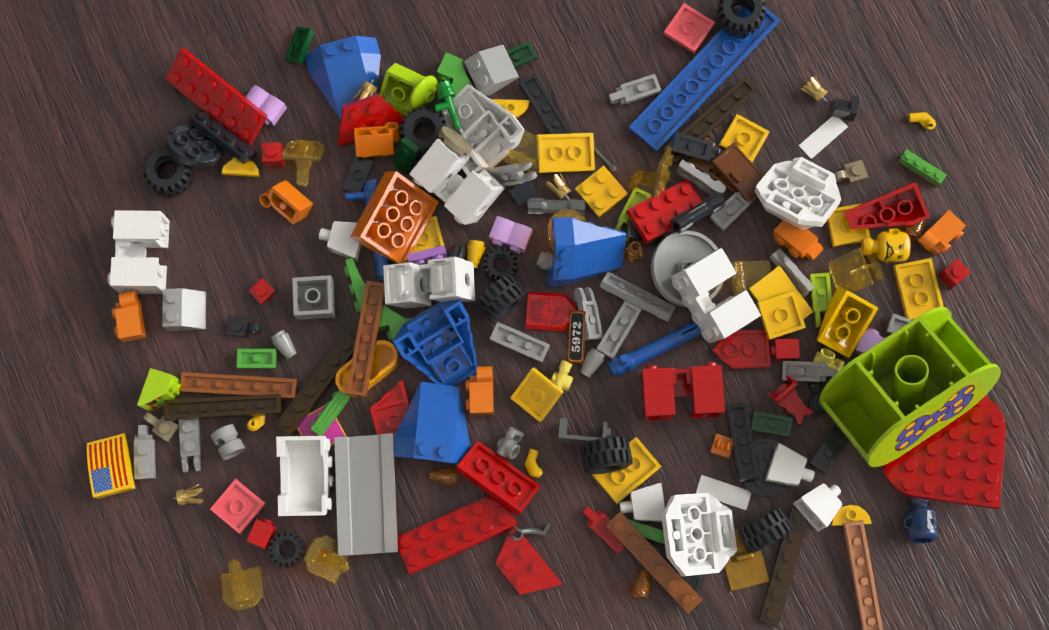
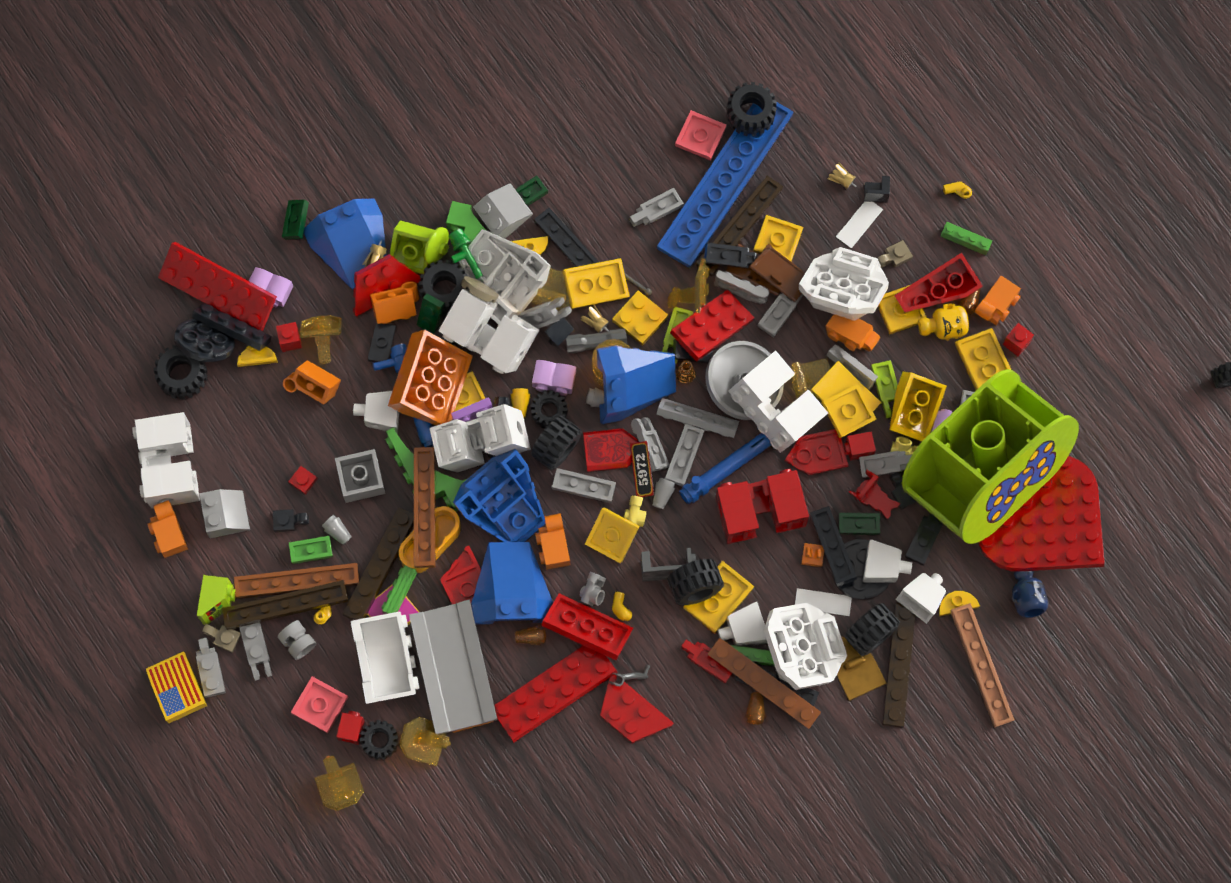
camera: 15 degrees left, 5 degrees down
(183, 496) = (258, 703): pearl gold piece -> none
(686, 219) = (754, 313): black axle -> none
(852, 271) = (913, 353): clear yellow plate -> none

